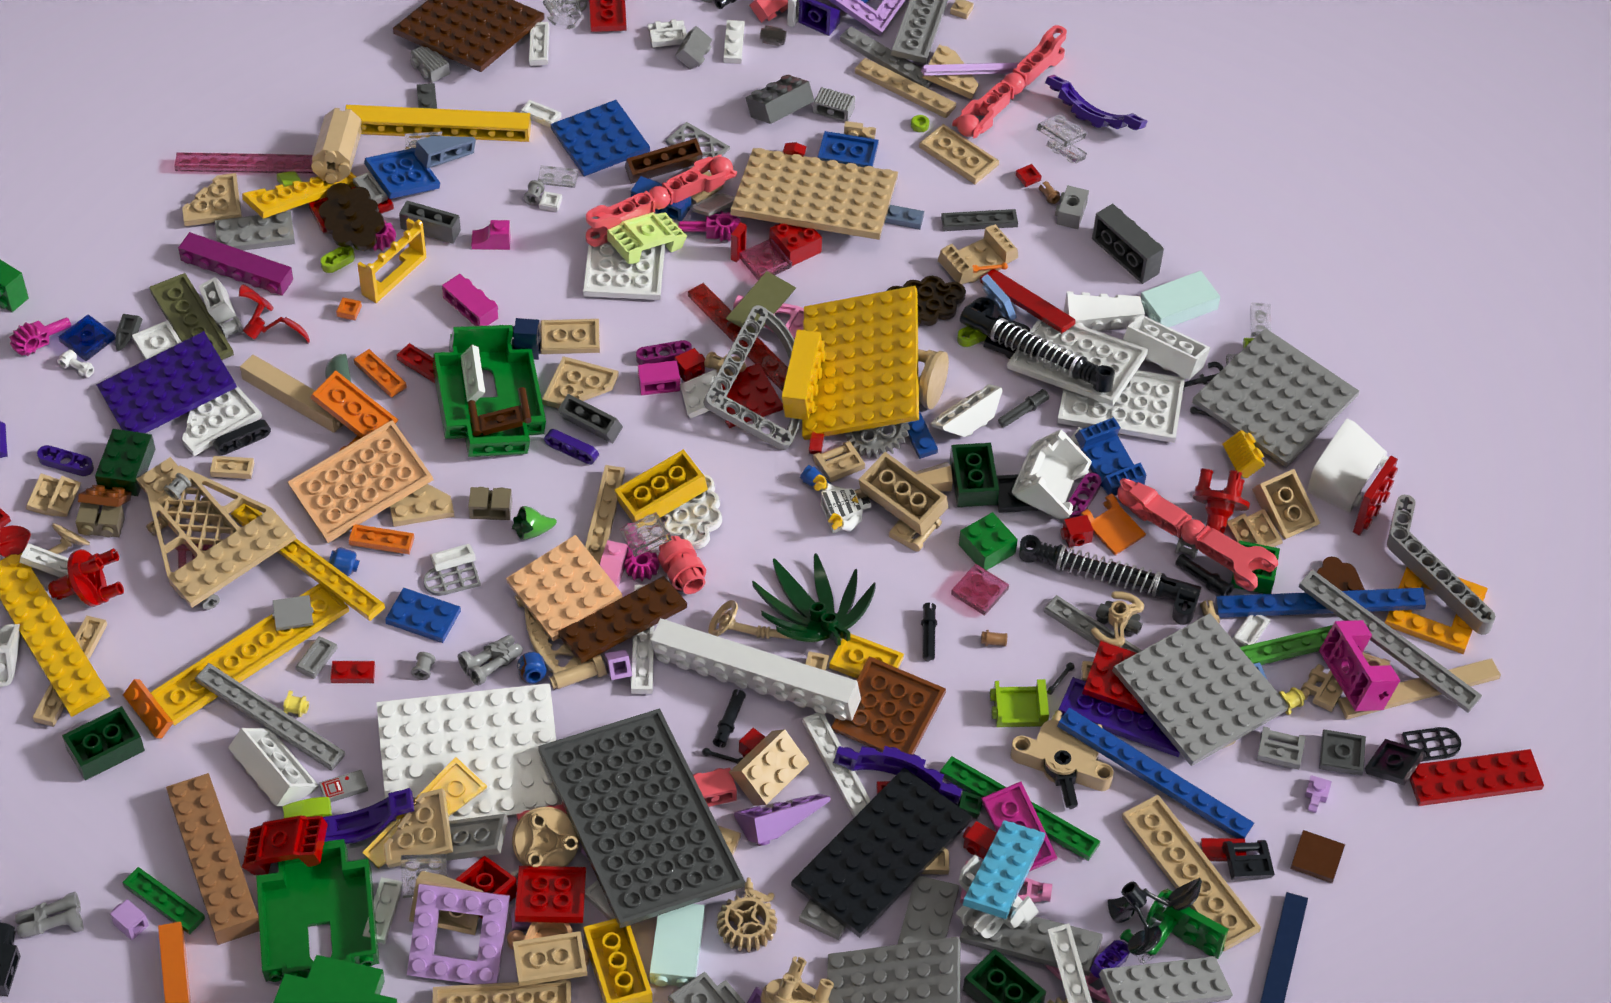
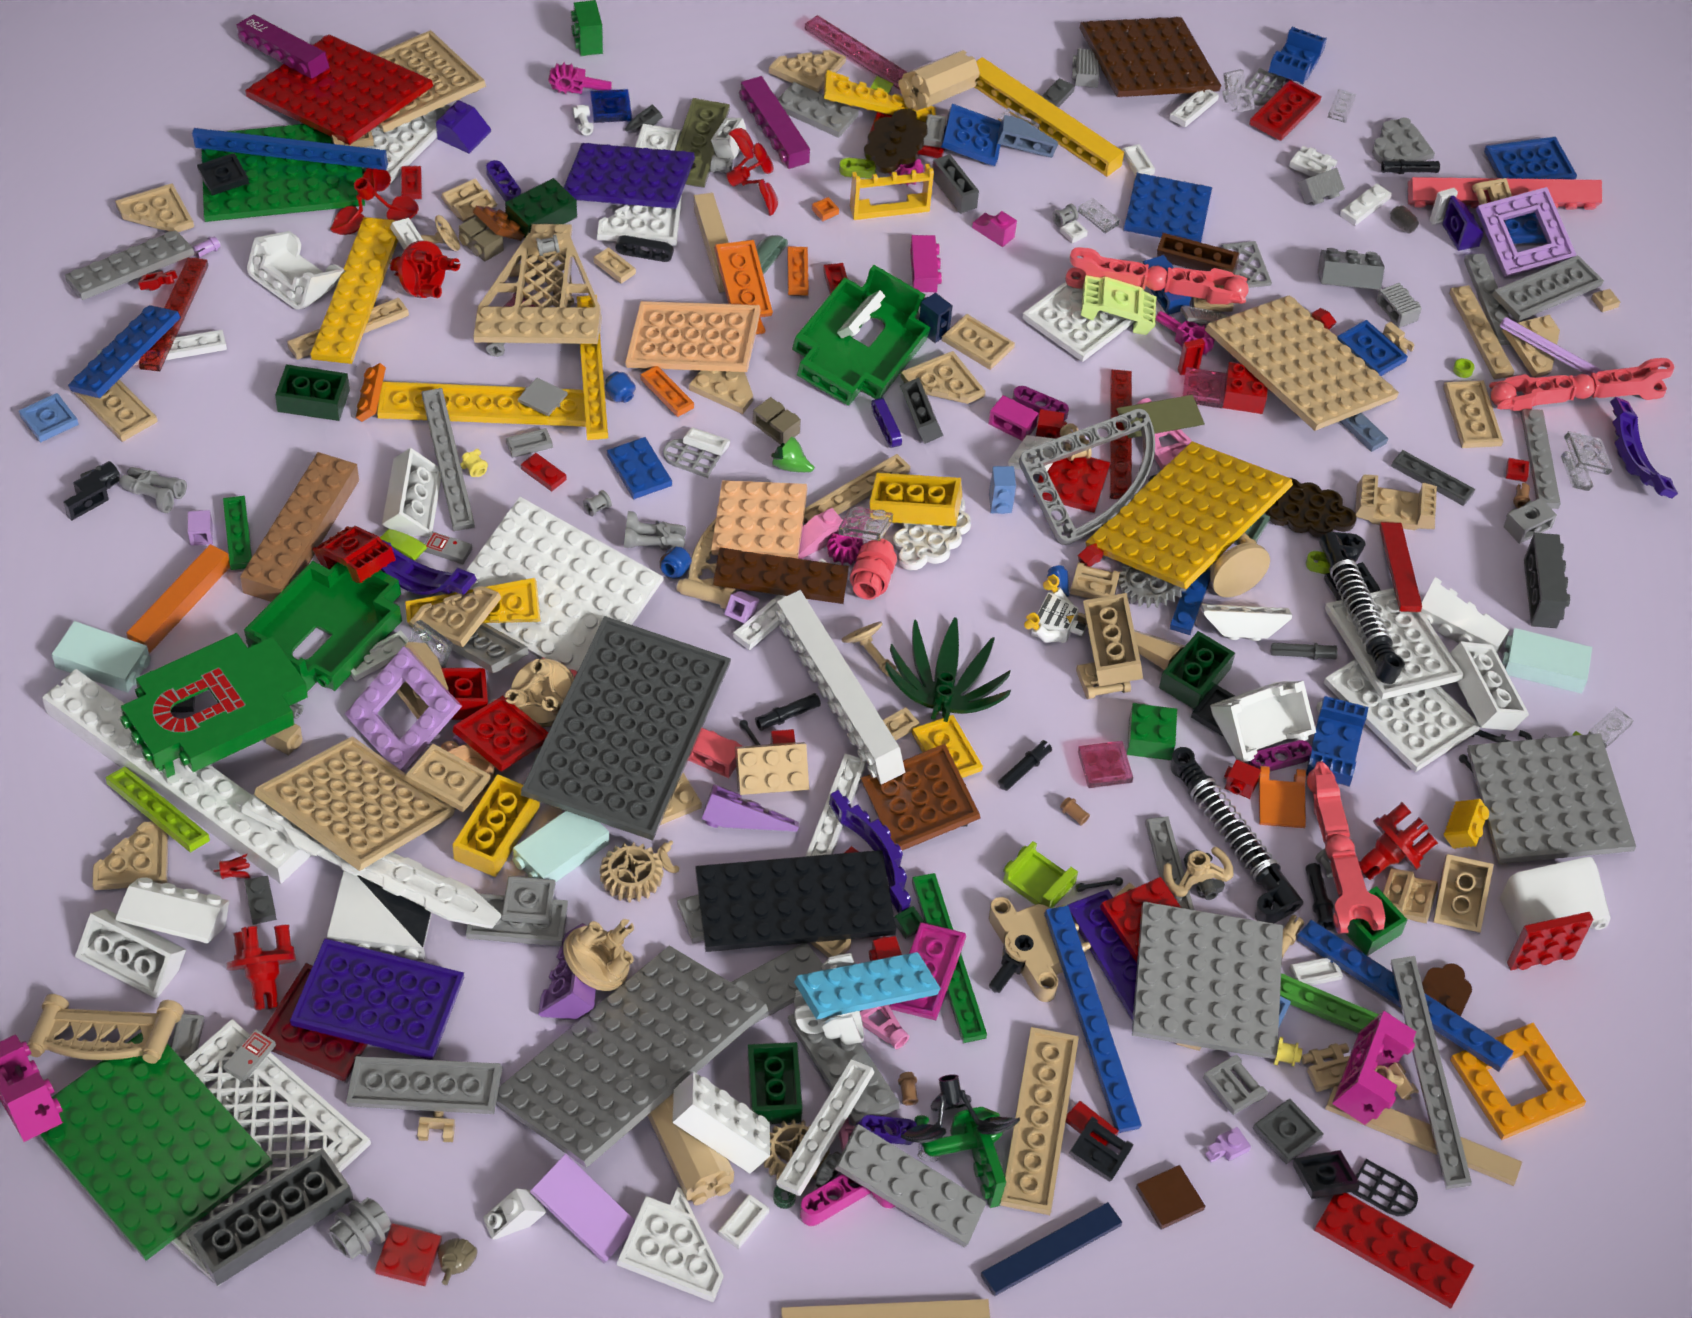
camera: 40 degrees right, 0 degrees up
(501, 419) = (844, 361): reddish brown plate -> none
(711, 438) = (1002, 489): none -> medium blue brick
(803, 374) = (1124, 488): yellow brick -> none
(1001, 300) = (1373, 546): light blue plate -> none
(1004, 266) = (1381, 511): orange hinge -> none
(1032, 155) = (1540, 457): none -> light grey plate
(1088, 921) = (907, 1081): none -> medium nougat pin
(1434, 572) = (1542, 1045): light grey beam -> none

